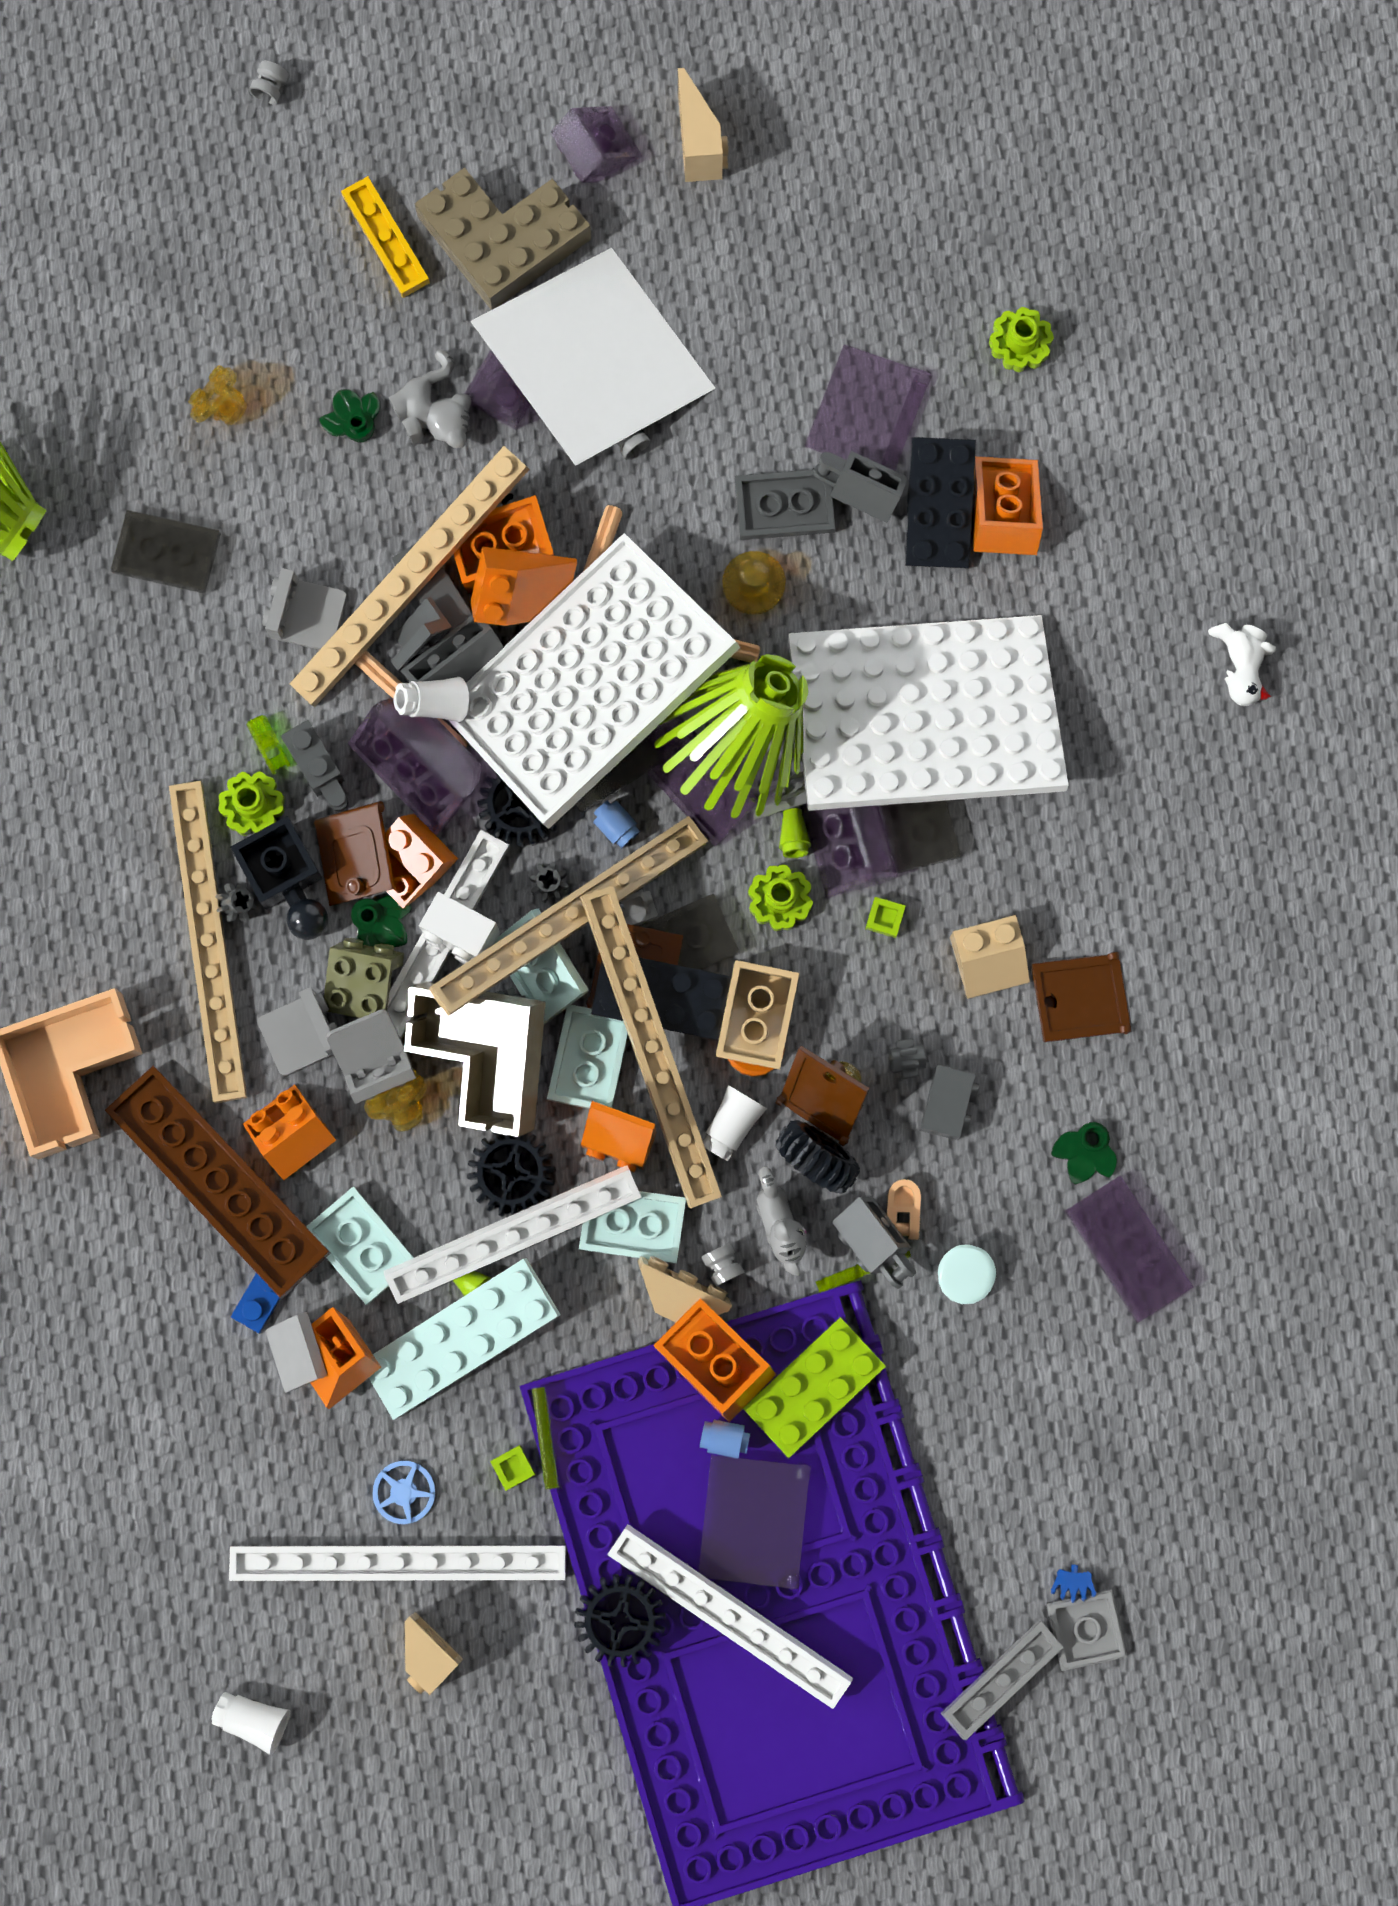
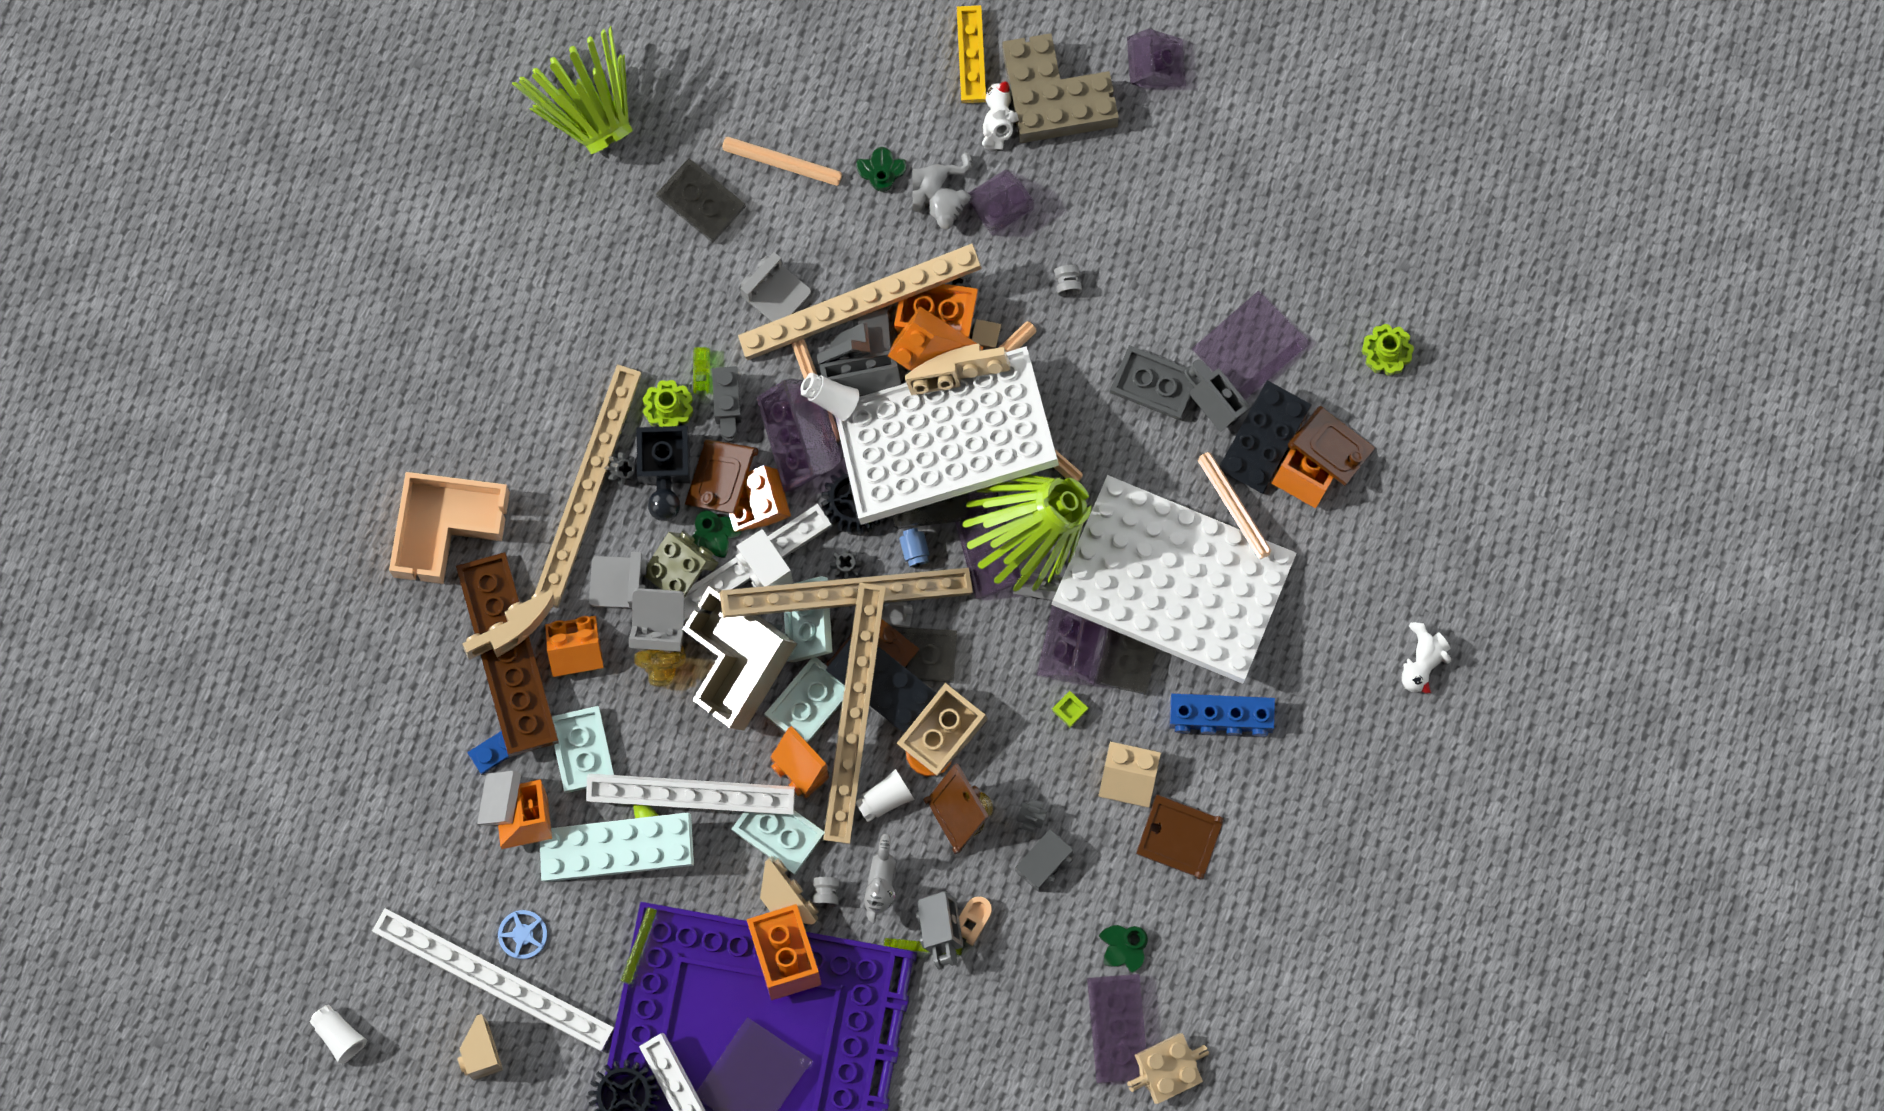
camera: 30 degrees right, 5 degrees down
(215, 1136) = (522, 621): none -> tan slope
(218, 398) = (793, 111): clear yellow plate -> none
(234, 462) = (782, 161): none -> light nougat axle
(456, 292) = (999, 120): none -> white animal
(484, 1166) = (720, 744): black gear -> none
(512, 1467) = (606, 956): lime plate -> none
(551, 600) = (949, 368): none -> tan slope
(568, 542) = (986, 333): none -> tan tile
(593, 355) = (1072, 210): white sticker -> none
(702, 142) = (1228, 100): tan slope -> none
(724, 1438) = (762, 1009): medium blue brick -> none
(753, 582) = (1103, 427): clear yellow plate -> none
(780, 897) = (1002, 658): lime plant -> none
(794, 835) = (1035, 620): lime cone -> none
(814, 1387) = (843, 1008): lime plate -> none
(817, 1156) = (930, 849): black gear -> none
(947, 596) = (1234, 505): none -> light nougat axle
(966, 1274) = (992, 986): light aqua piece -> none
(1017, 474) = (1330, 444): none -> reddish brown container
(1055, 836) = (1222, 713): none -> blue brick
(1209, 1265) = (1168, 1068): none -> tan plate

